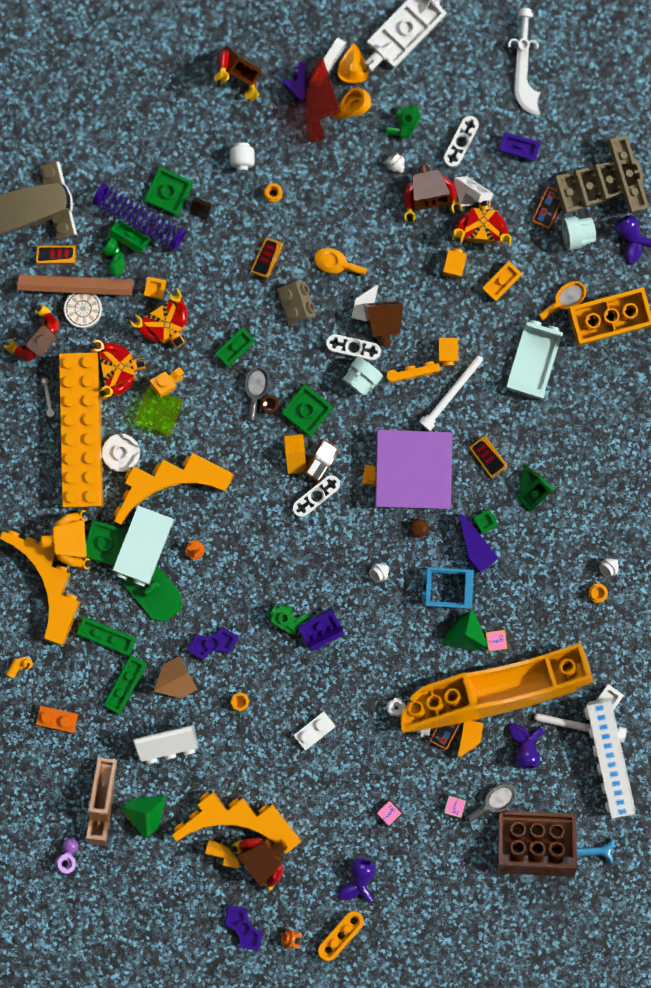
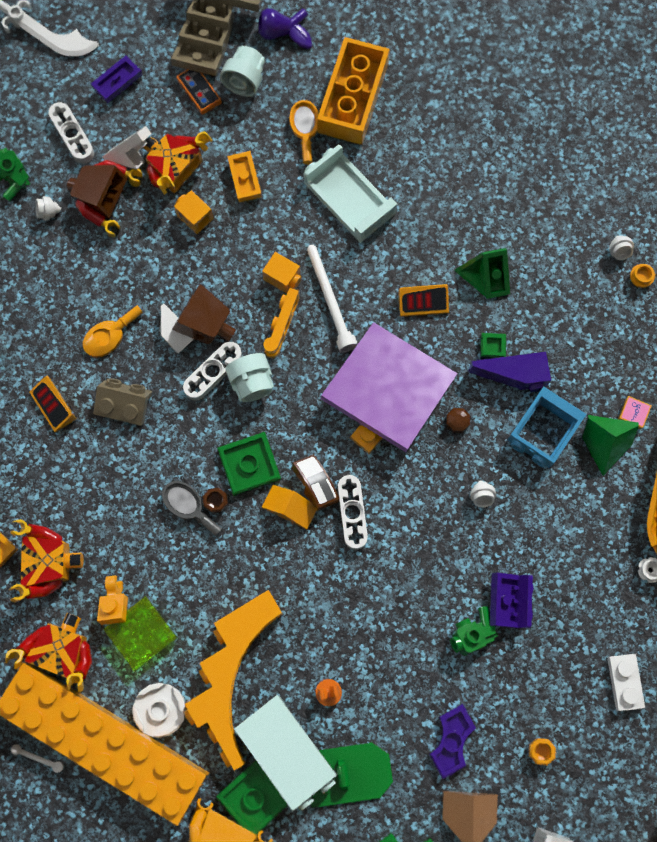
camera: 60 degrees left, 10 degrees down
(235, 347) = (126, 499): green plate -> none

